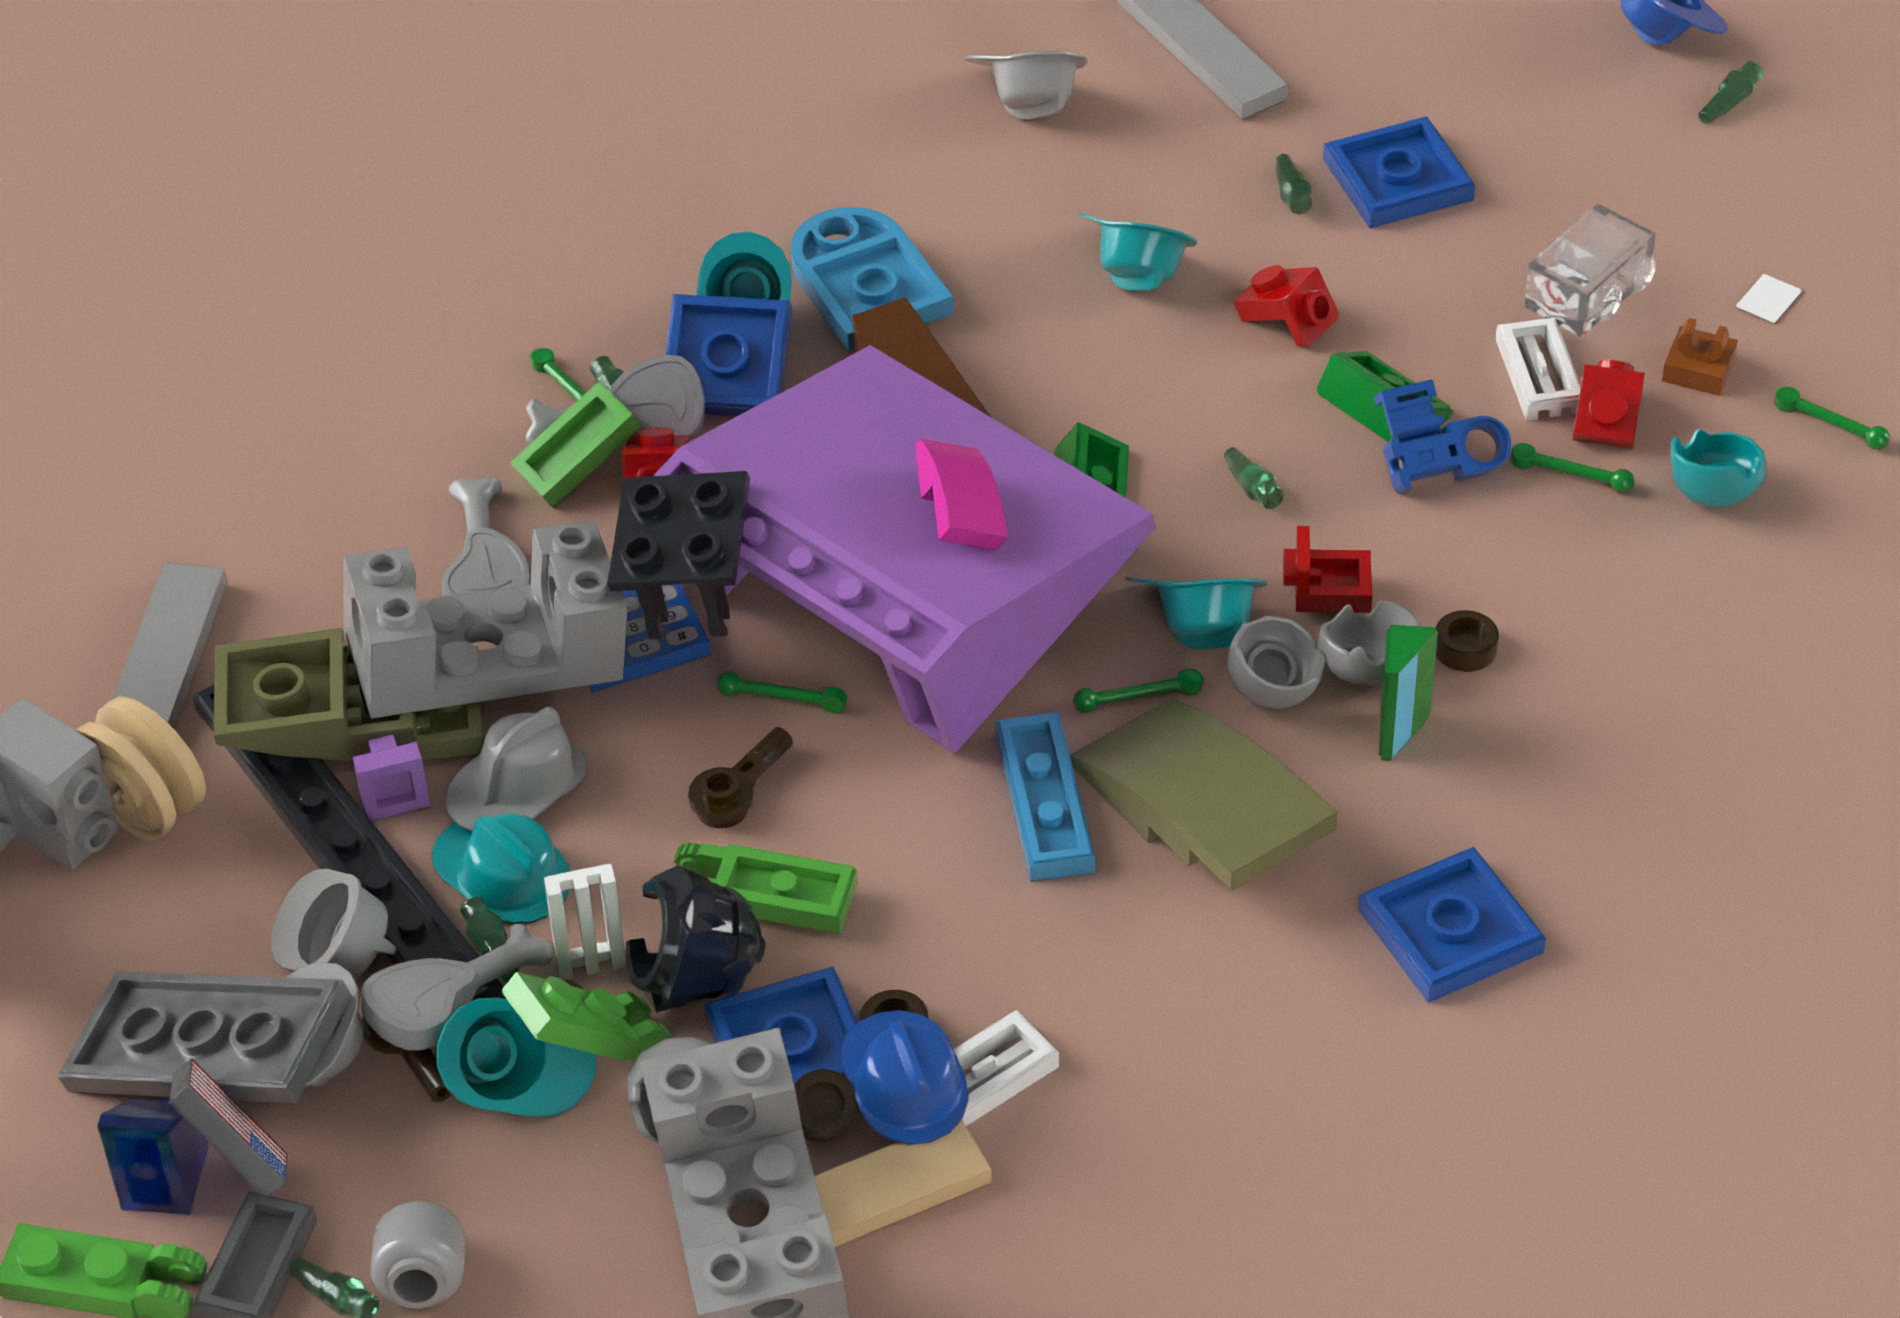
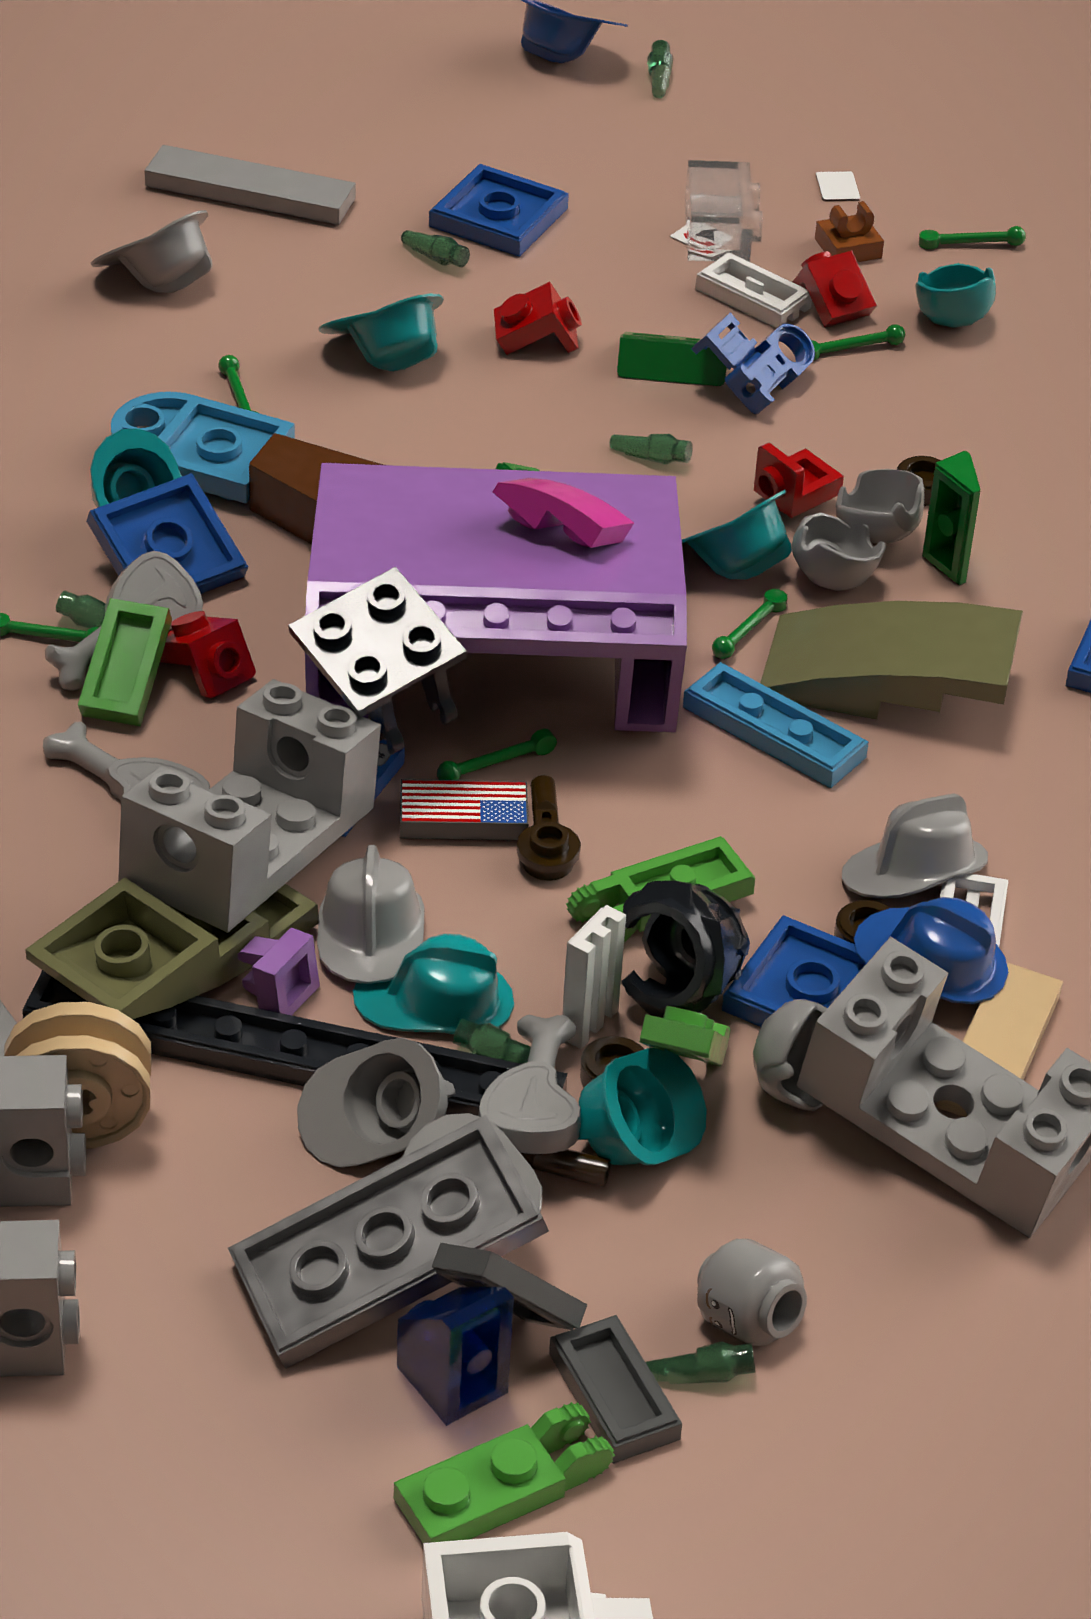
camera: 45 degrees left, 5 degrees down
(697, 720) = (463, 809): none -> tile
(983, 215) = (229, 366): none -> green hinge
(1010, 978) = (919, 849): none -> light grey piece

